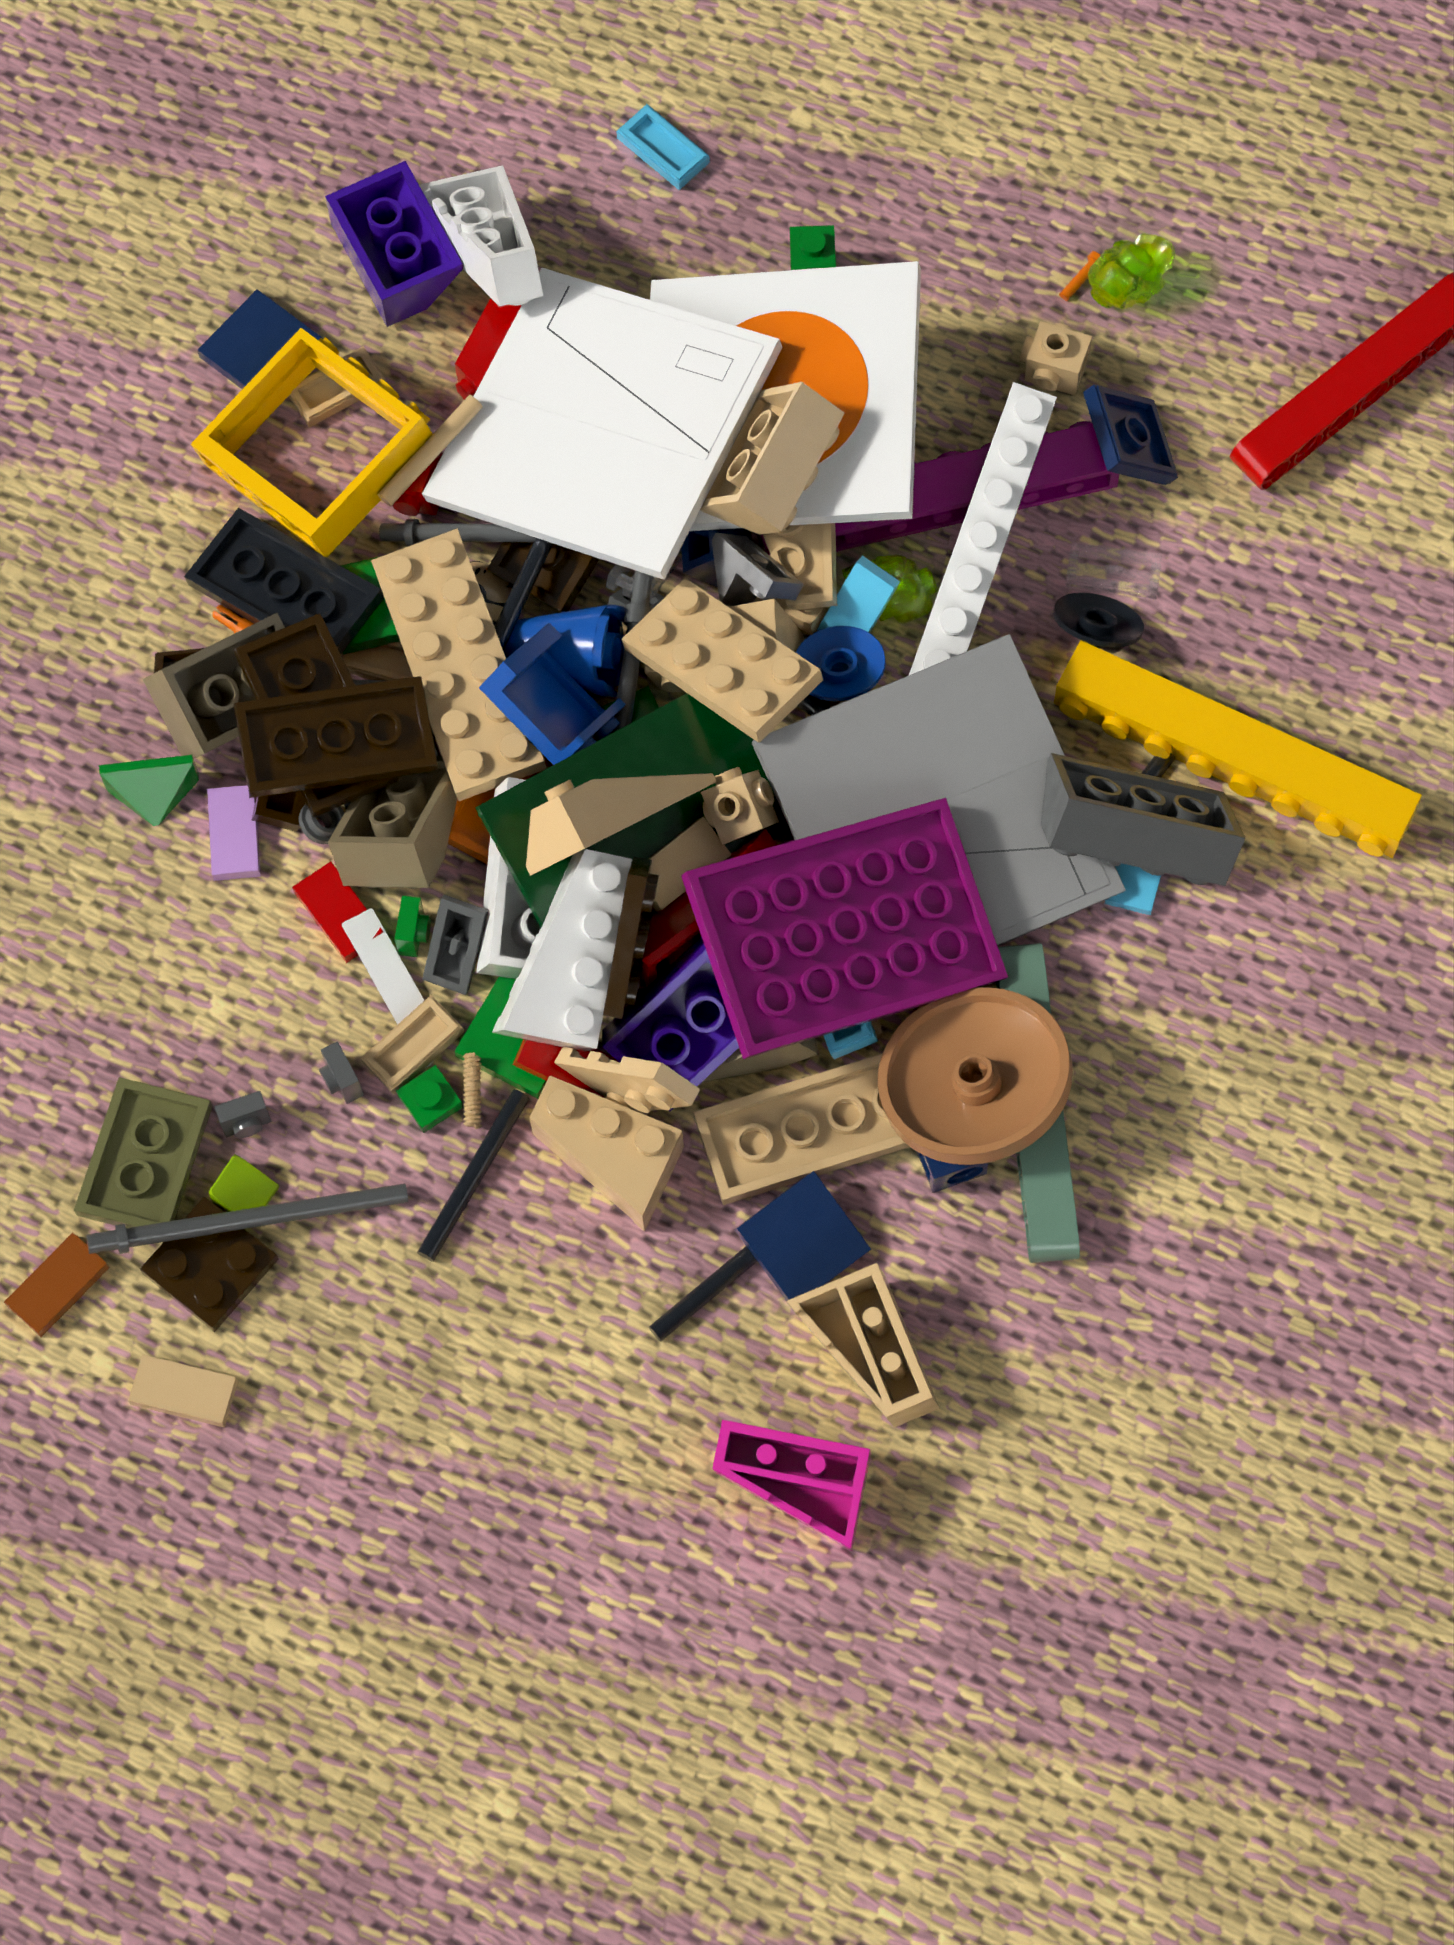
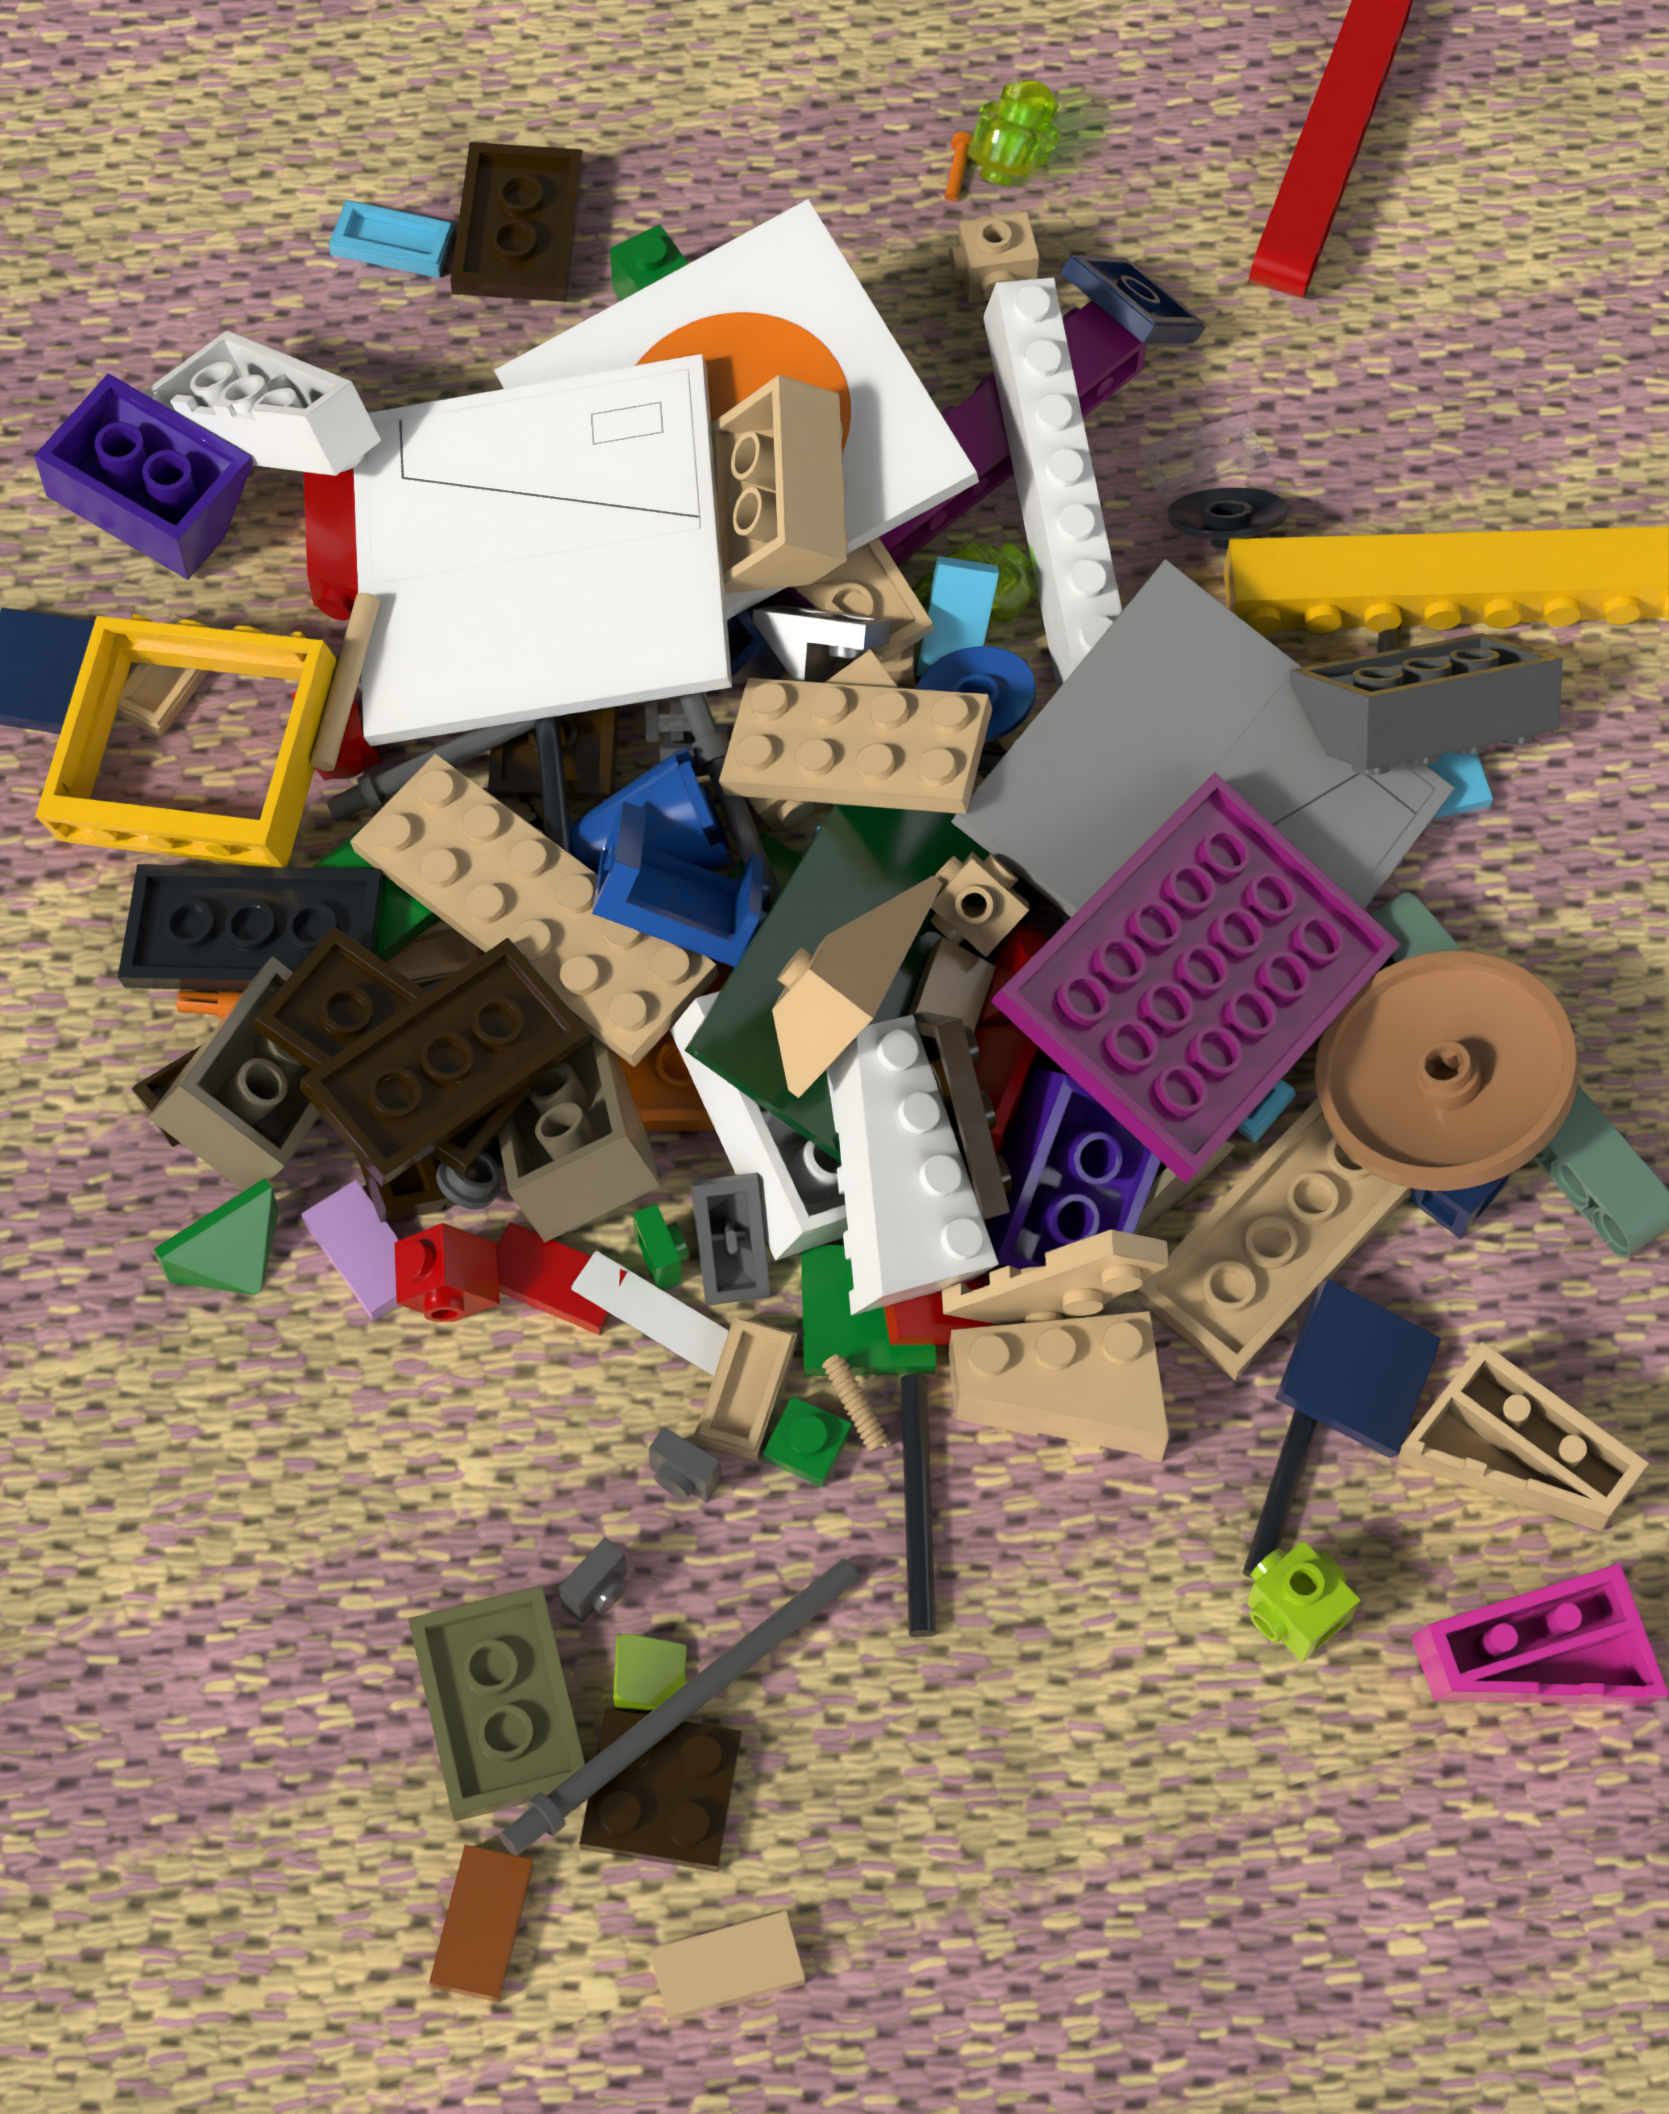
camera: 35 degrees left, 5 degrees down
(267, 874) = (446, 1273): none -> red brick
(667, 1378) = (1300, 1599): none -> lime brick
(751, 174) = (517, 222): none -> dark brown plate

